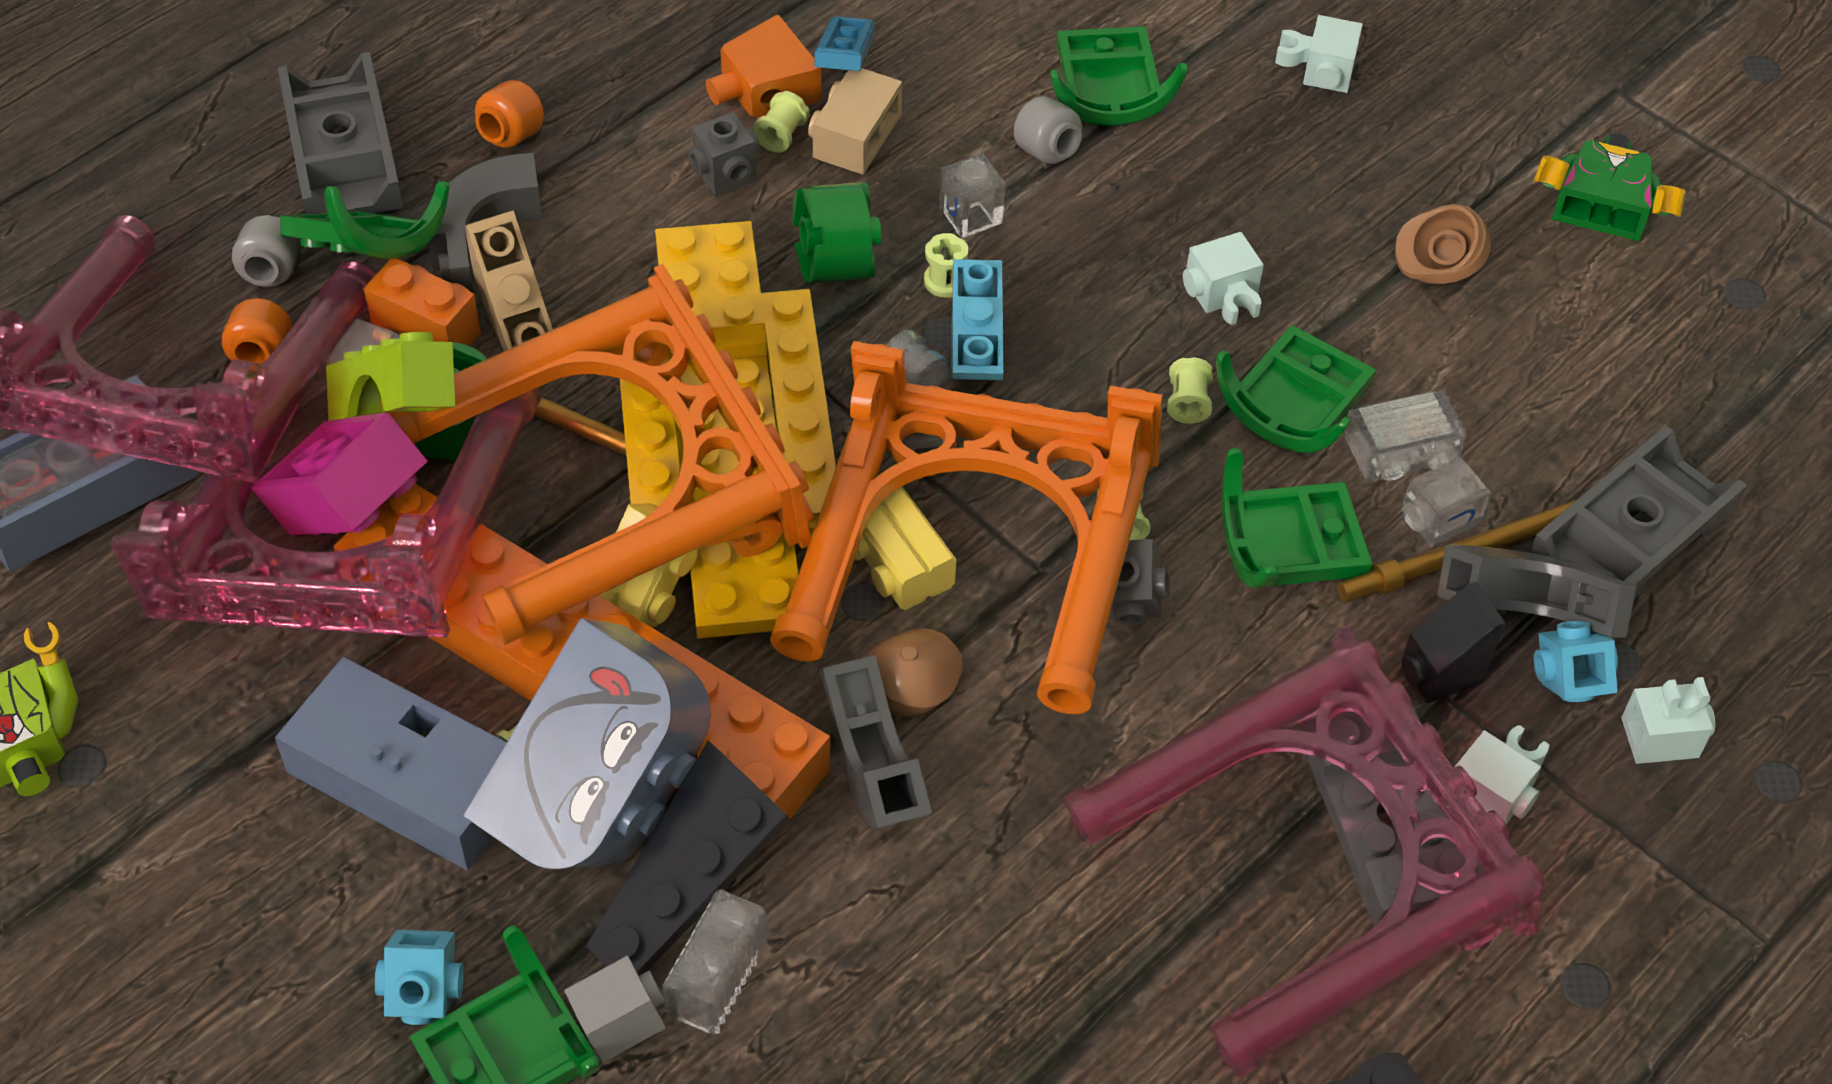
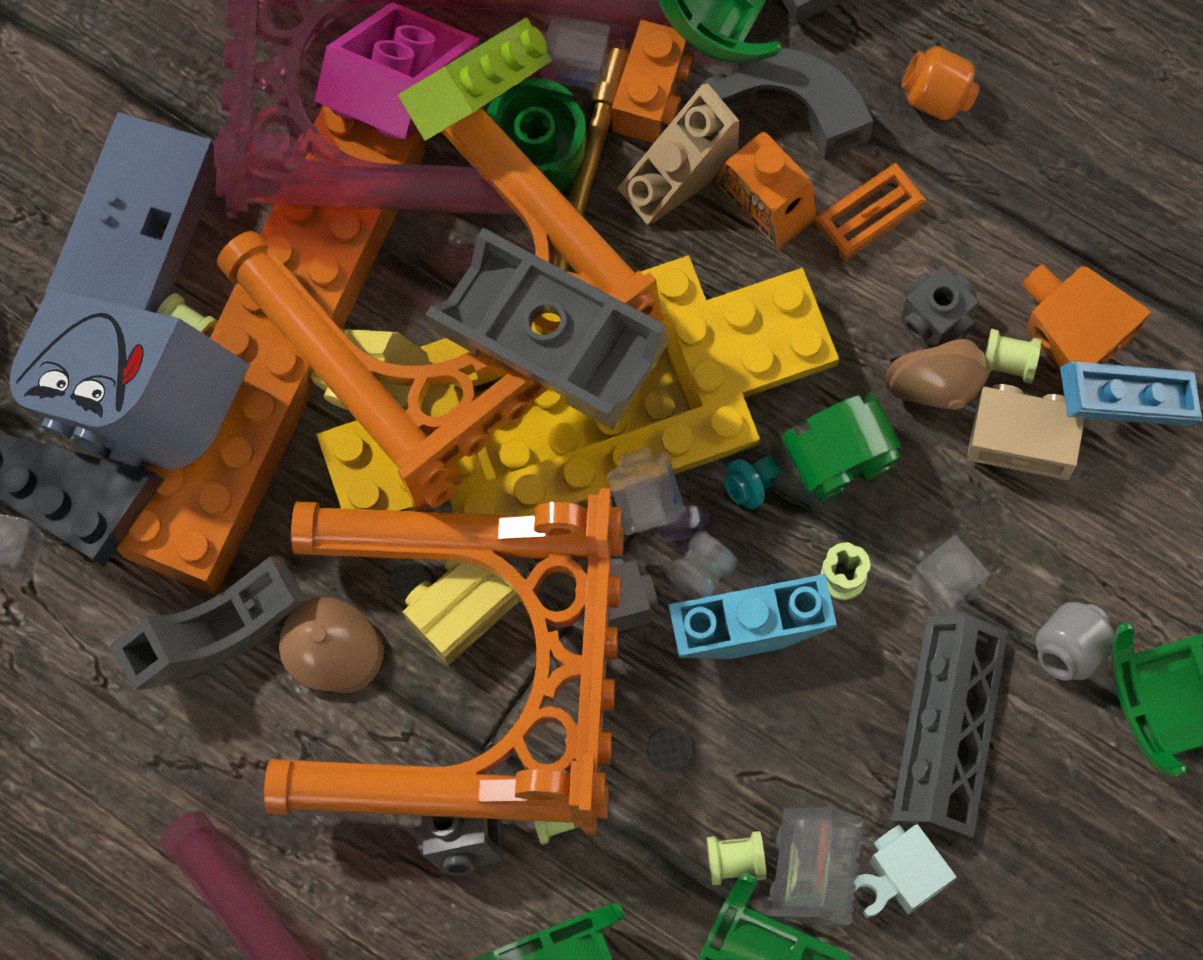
camera: 85 degrees right, 20 degrees up
(566, 239) = (764, 184): none -> orange torso
(618, 217) = (837, 236): none -> orange tile
(647, 379) = (590, 359): none -> dark grey piece
(792, 156) = (939, 375): none -> medium nougat hat
(829, 355) = (645, 490): none -> clear brick
(843, 316) = (748, 482): none -> teal plate
(1097, 230) = (942, 720): none -> dark grey fence
(1208, 324) = (816, 866): none -> clear brick

